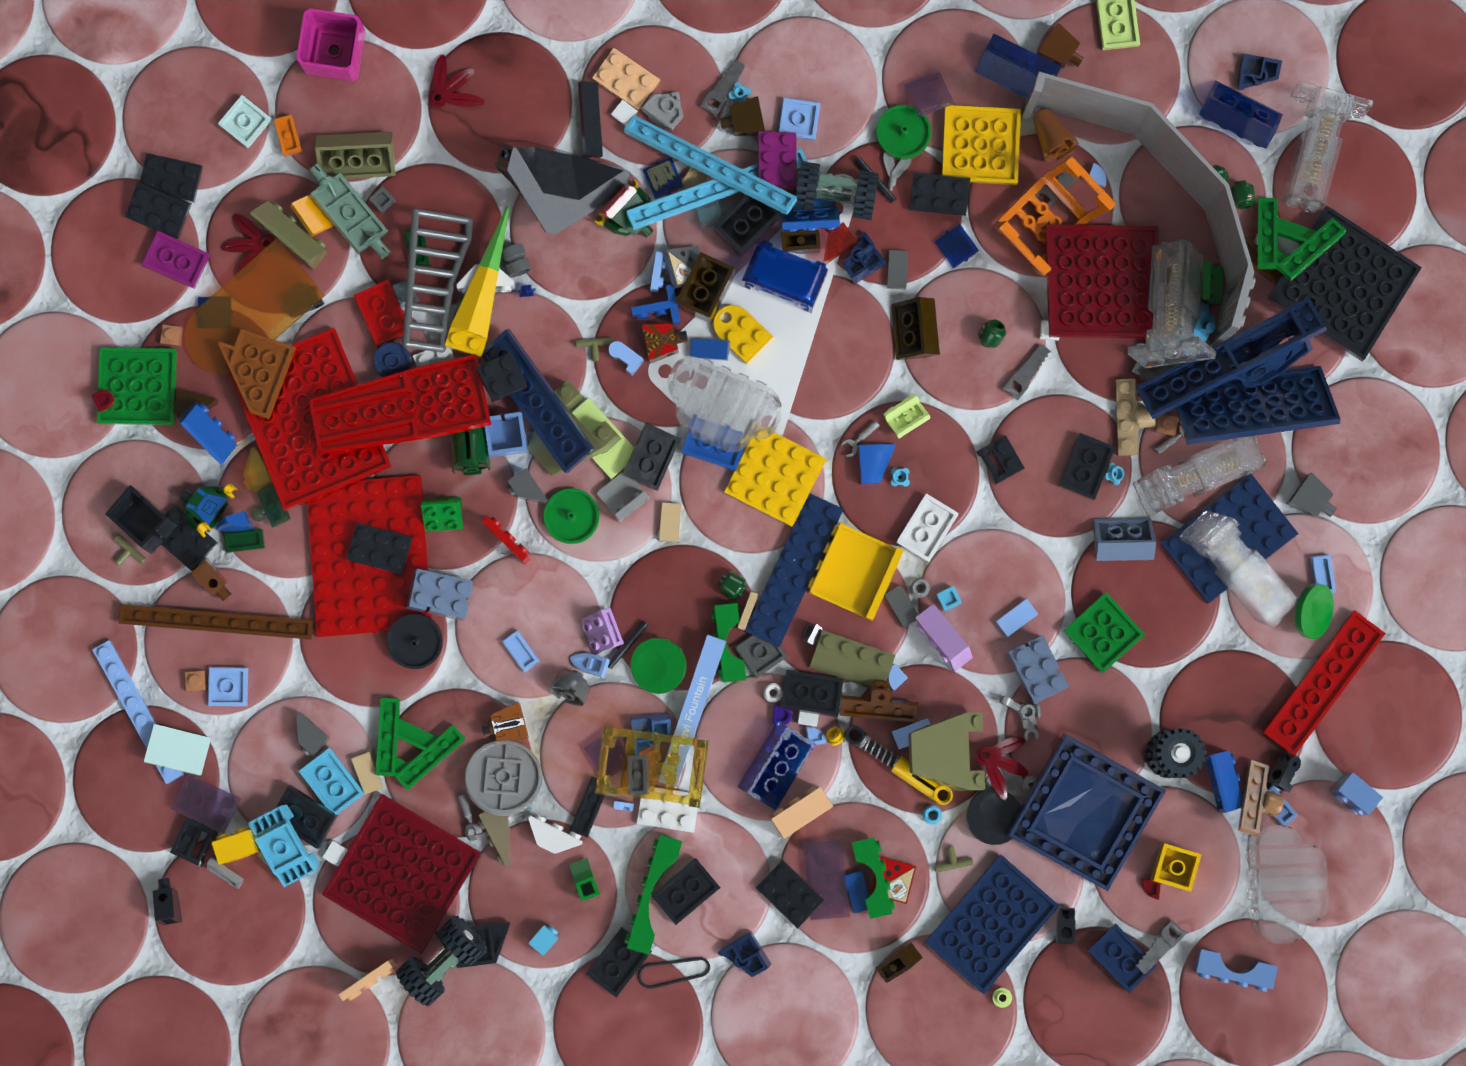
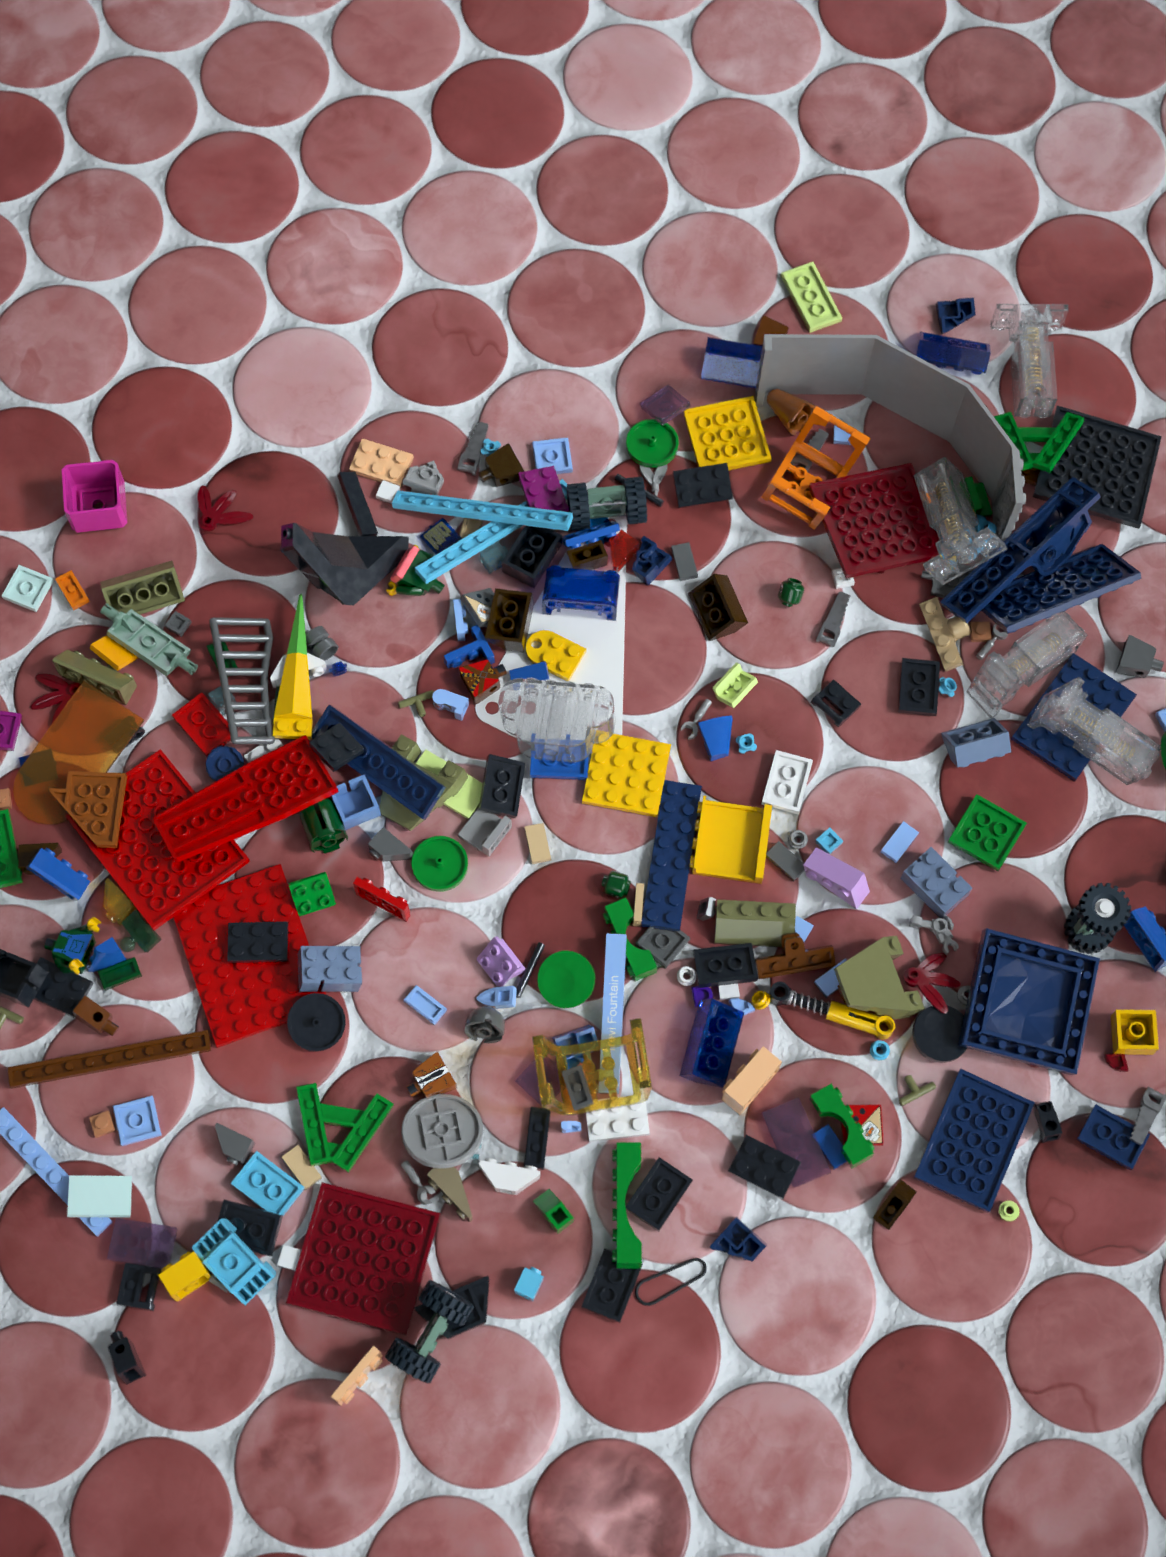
camera: 15 degrees left, 15 degrees down
(224, 873) = (179, 1309): light grey tile -> none
(956, 246) = (732, 528): clear blue piece -> none

